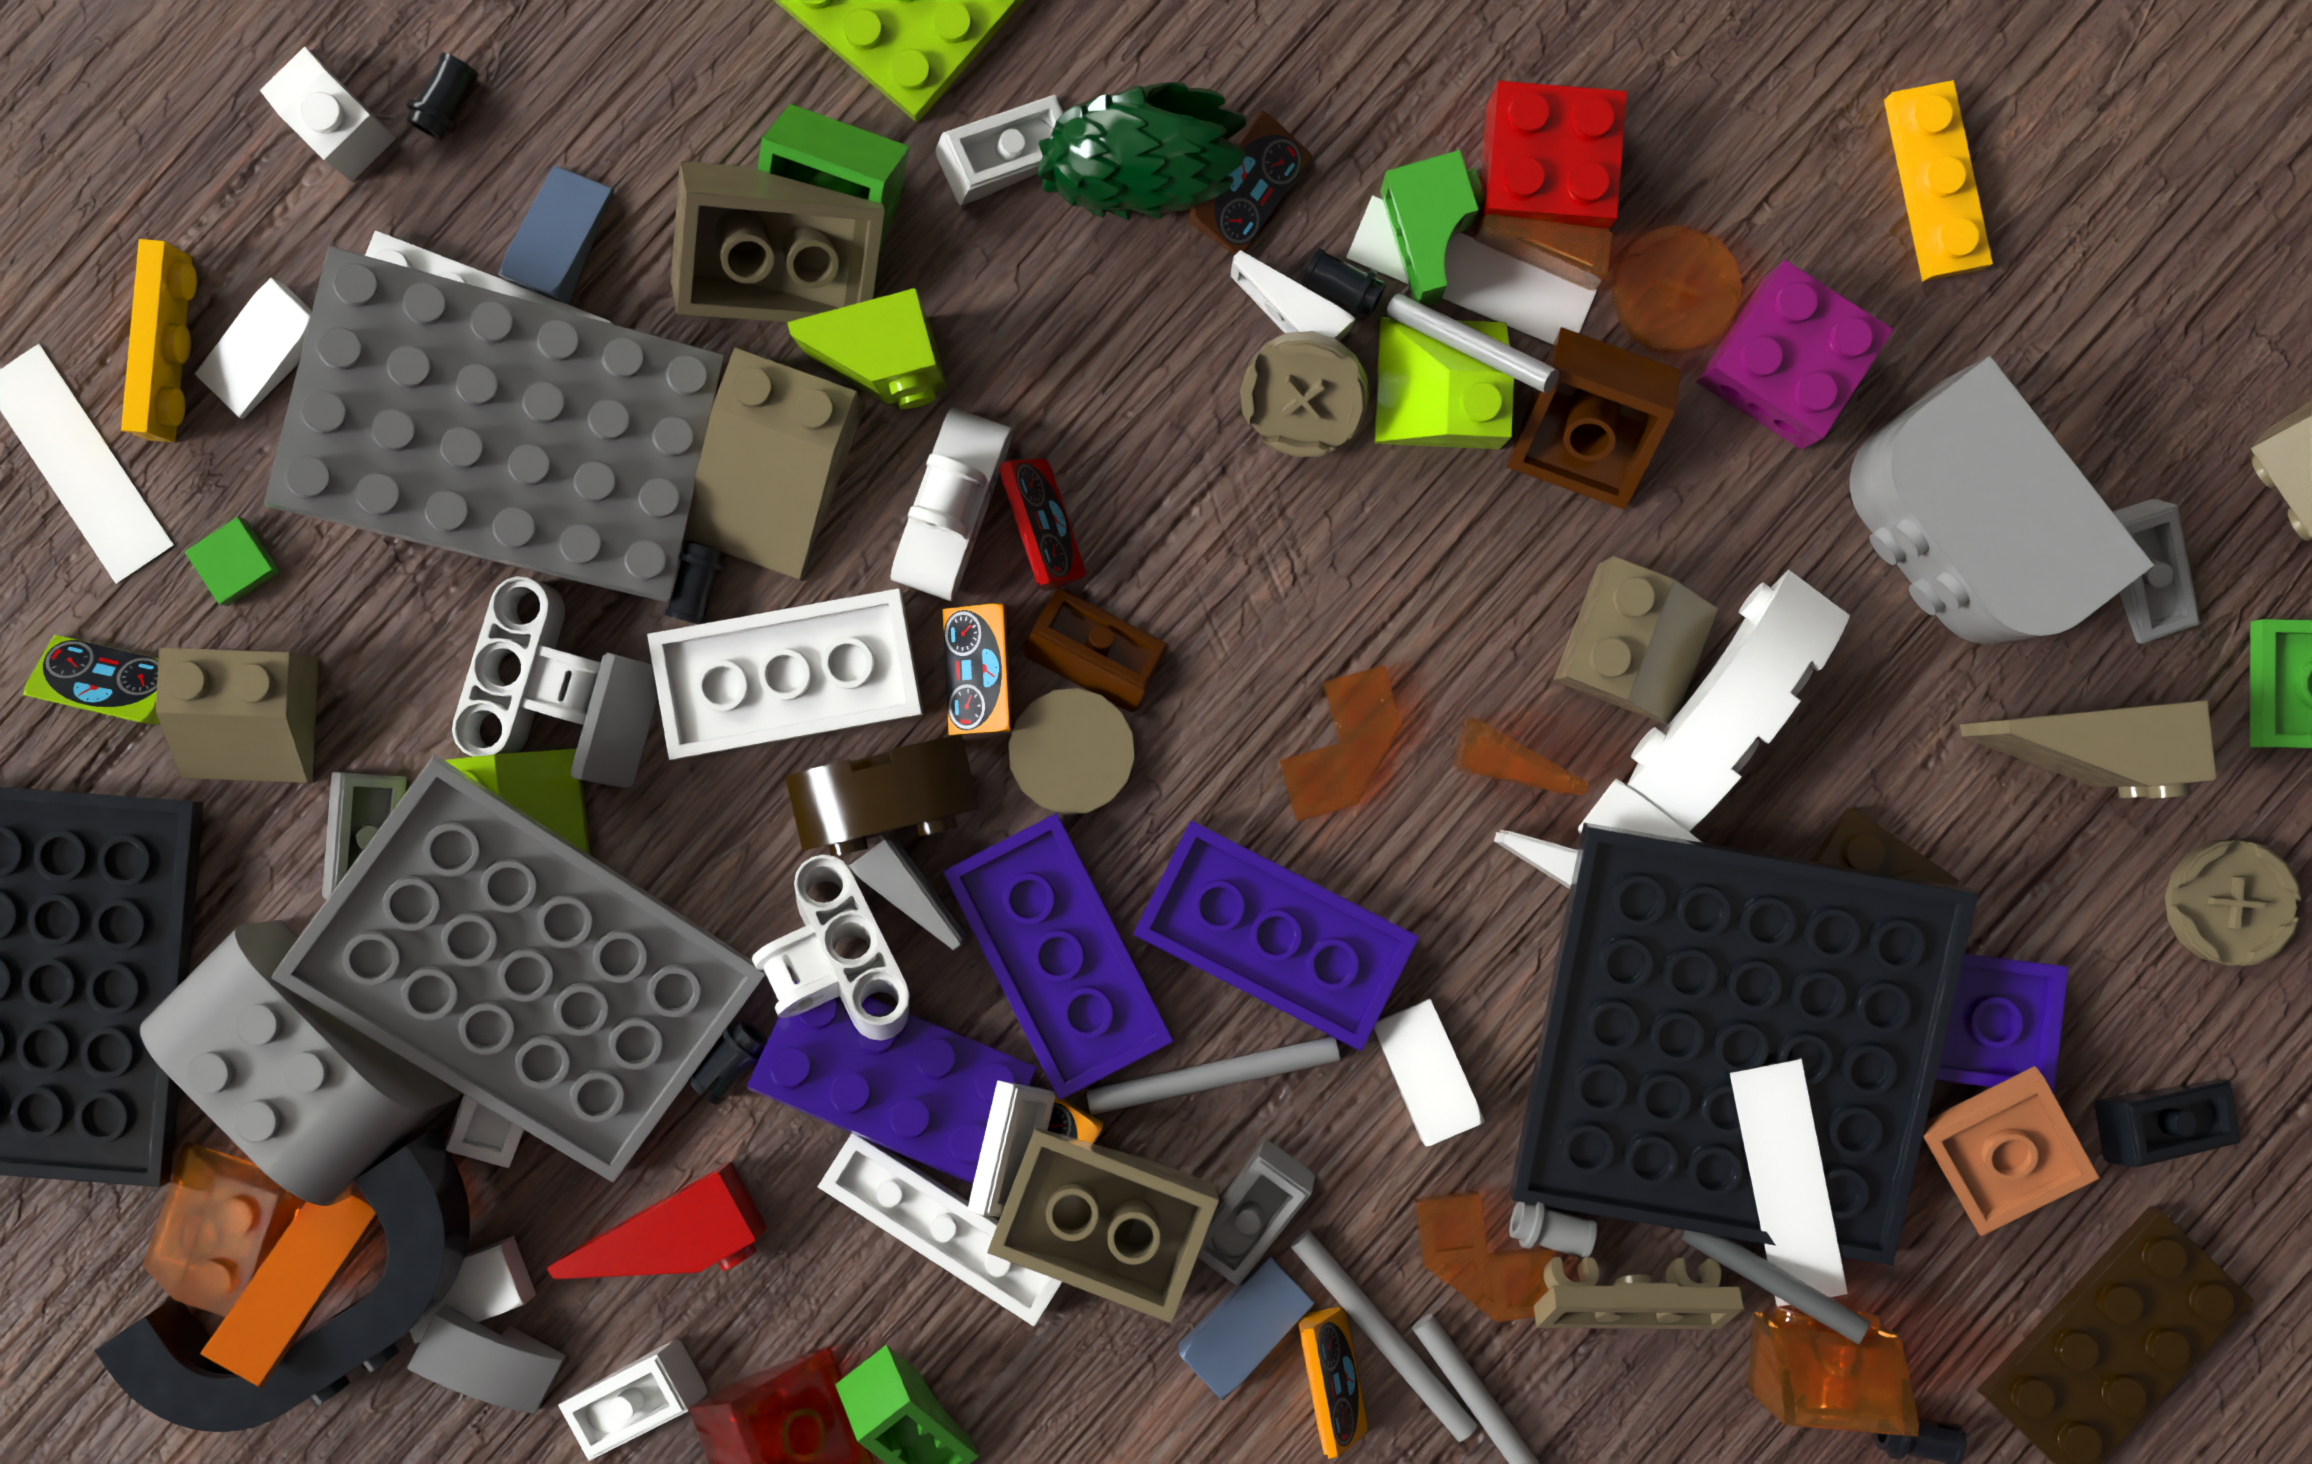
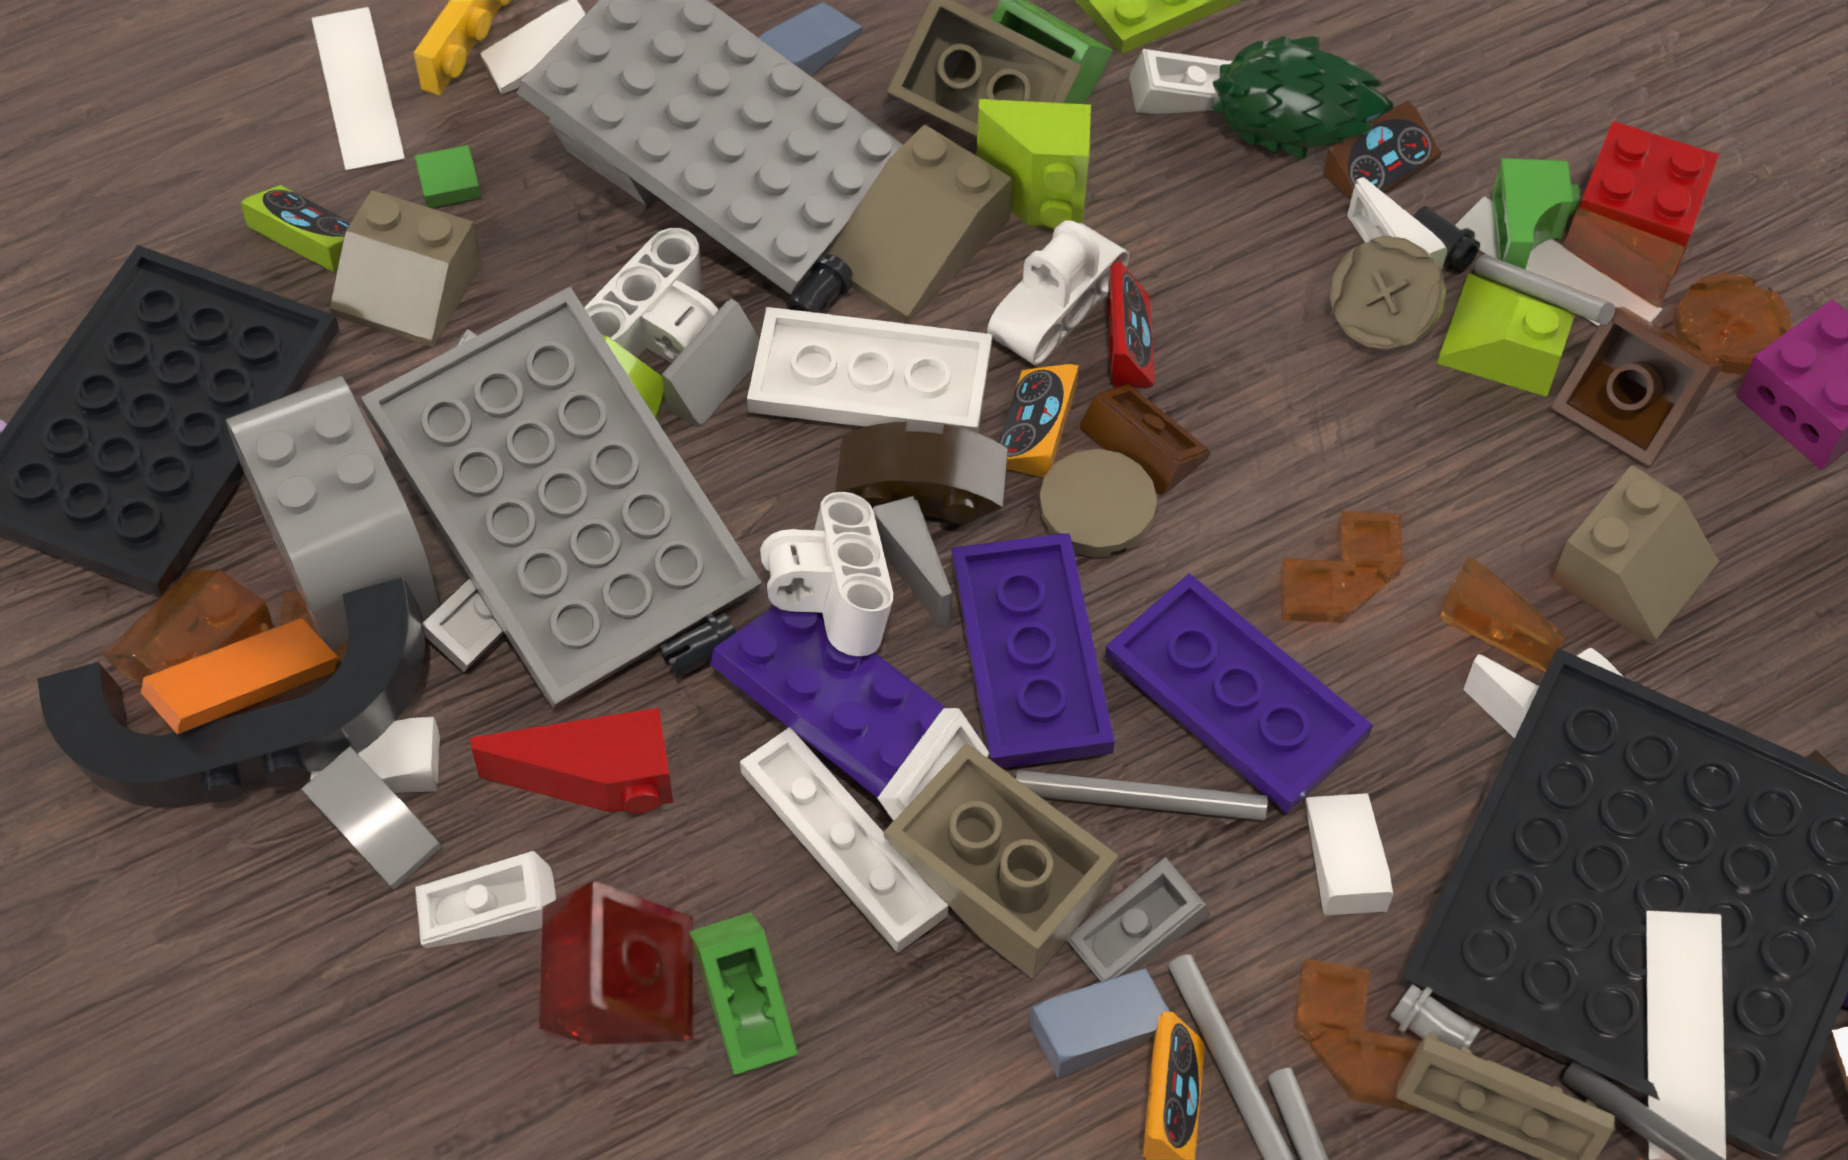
camera: 20 degrees right, 30 degrees down
(1741, 699) = (1748, 594): white brick -> none

